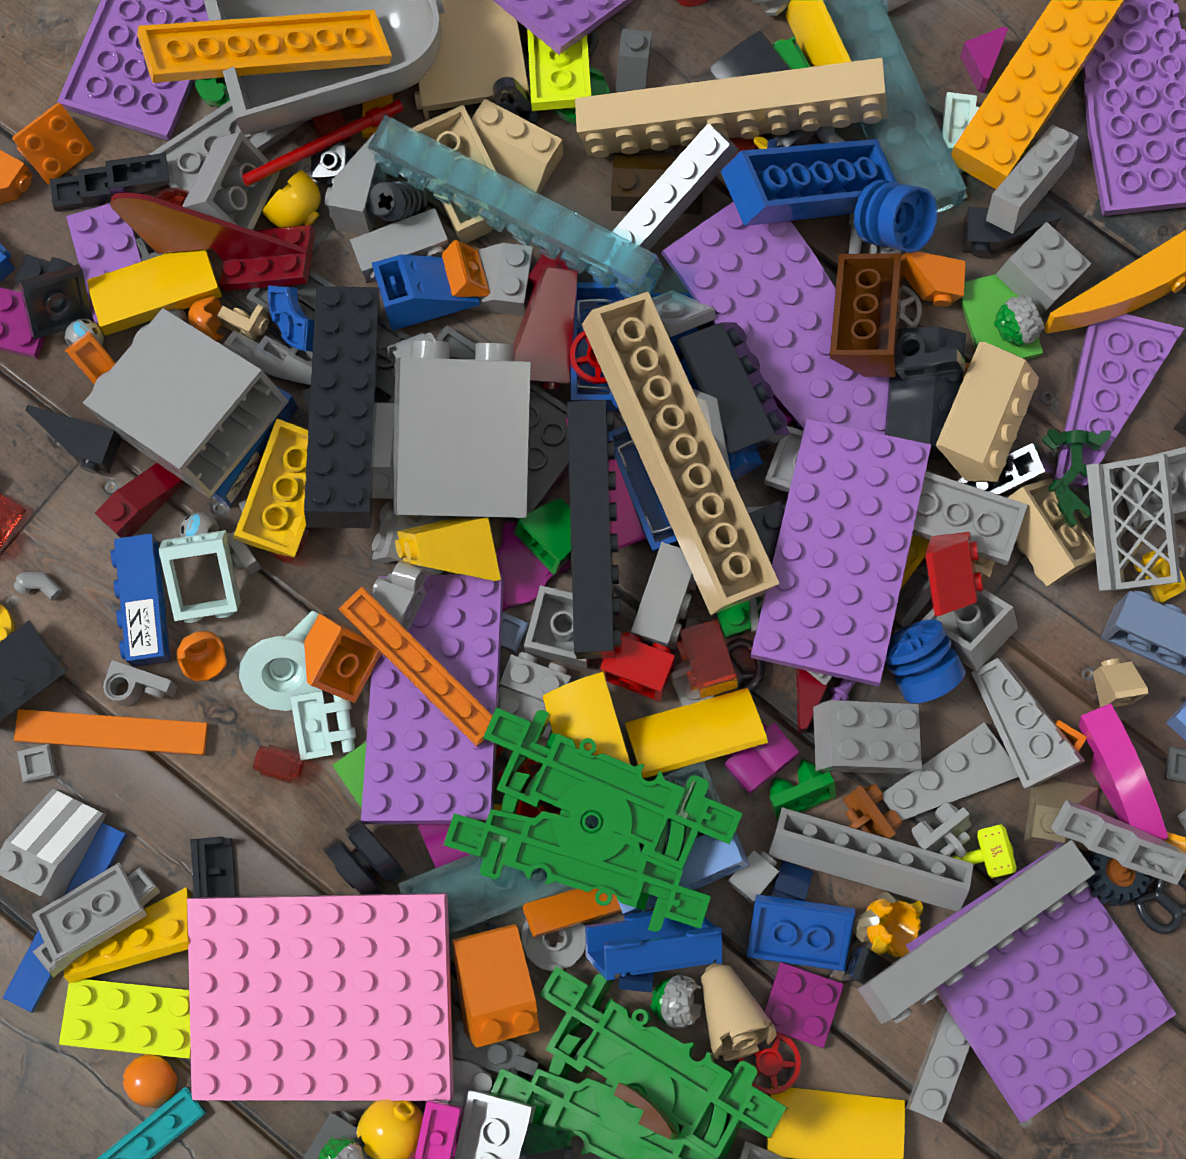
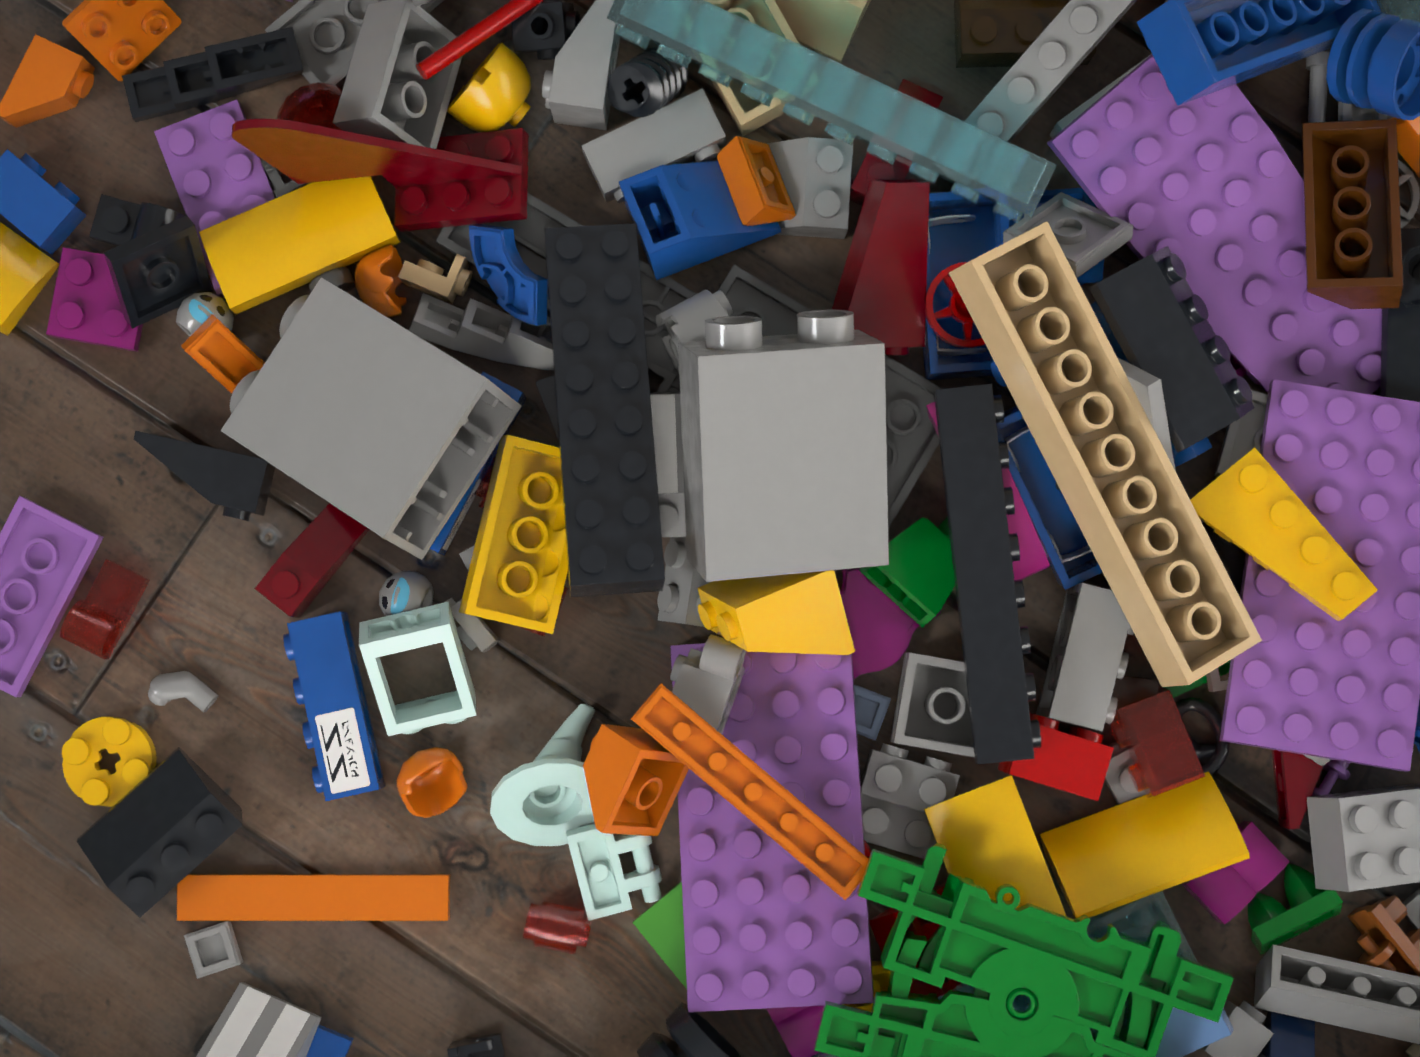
camera: 10 degrees left, 10 degrees up
(137, 680) = (369, 828): light grey plate -> none
(800, 516) = (1273, 526): none -> yellow wing

